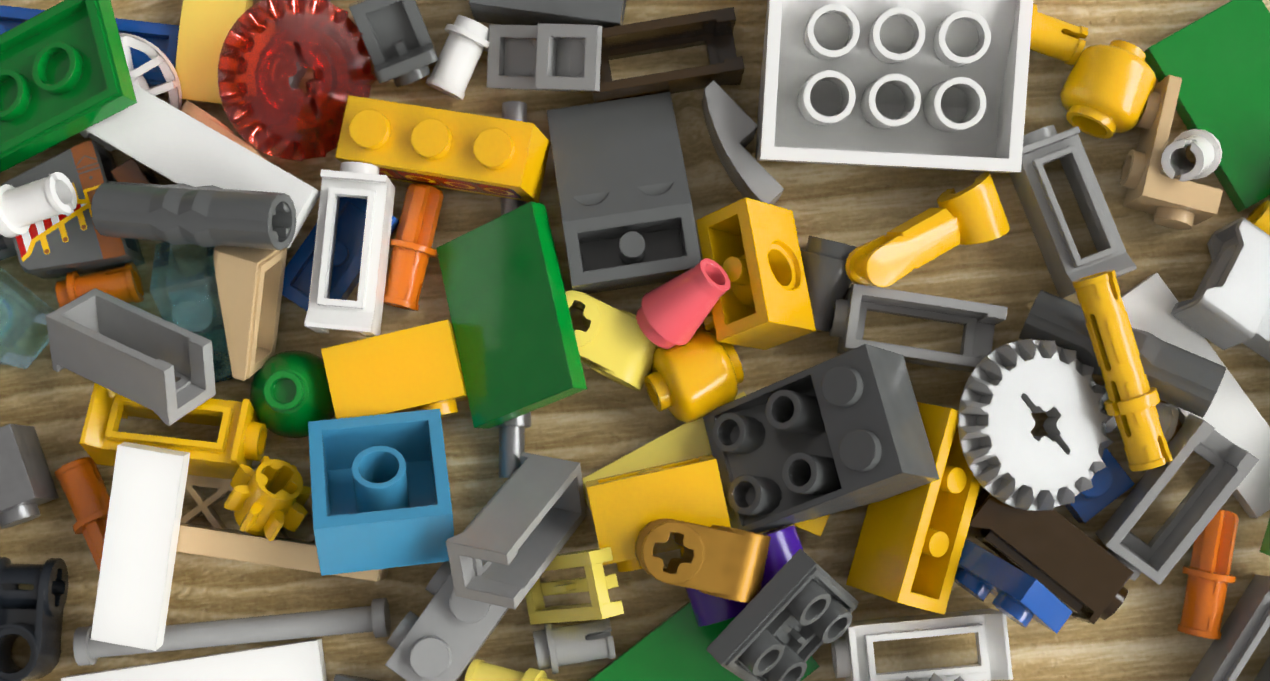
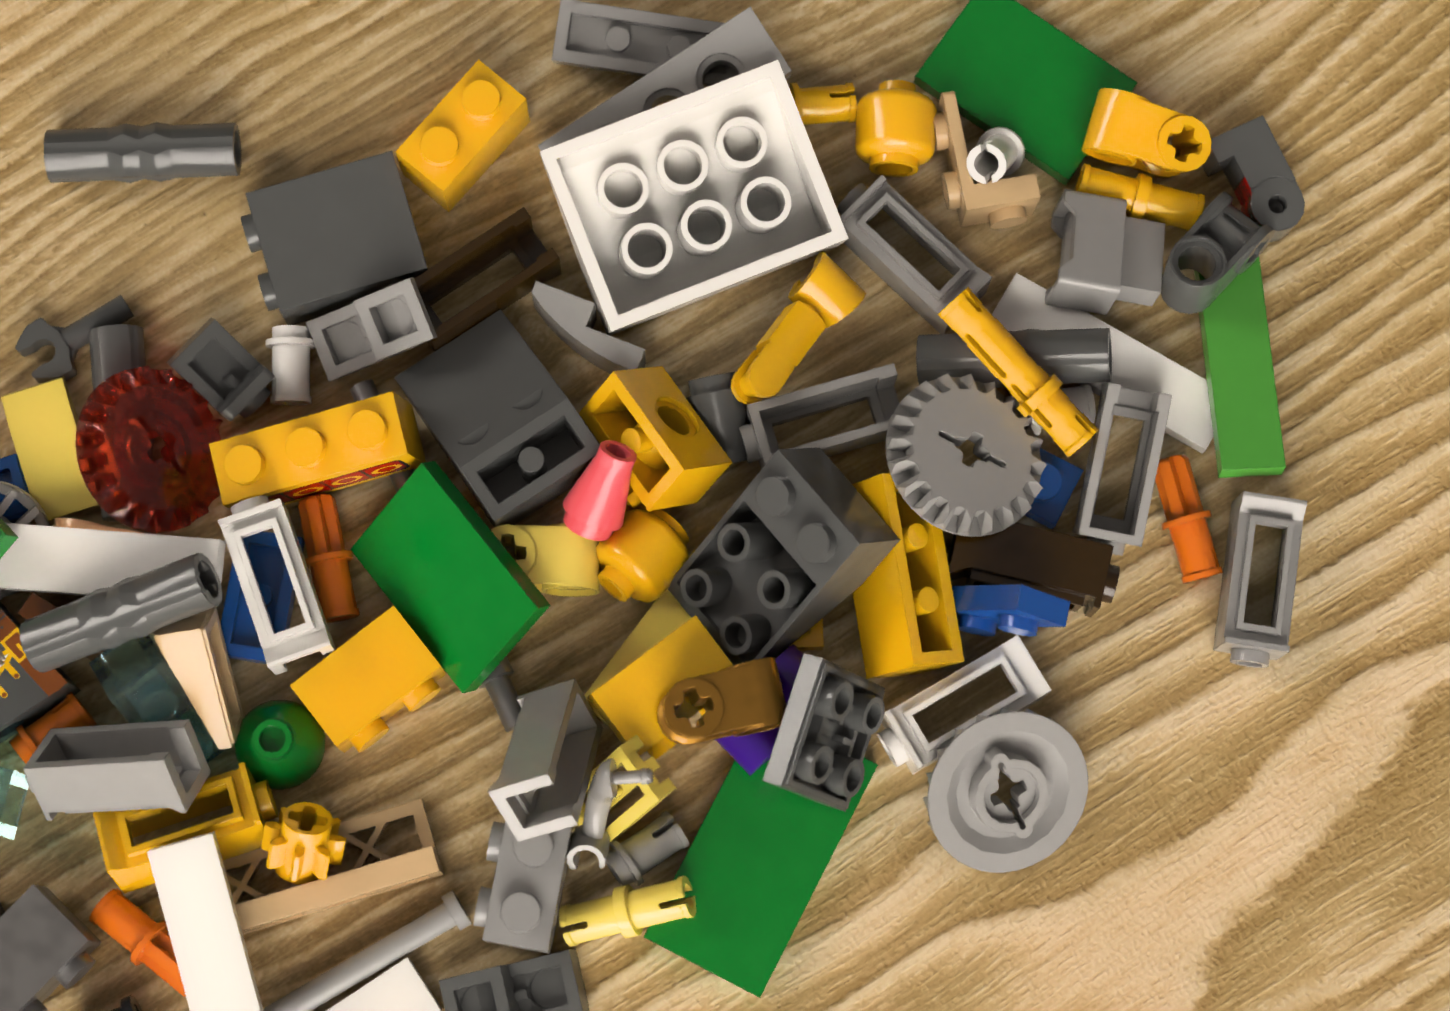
camera: 30 degrees left, 5 degrees down
(379, 491) = (406, 785): dark azure brick -> none
(553, 585) = (601, 792): none -> light grey piece

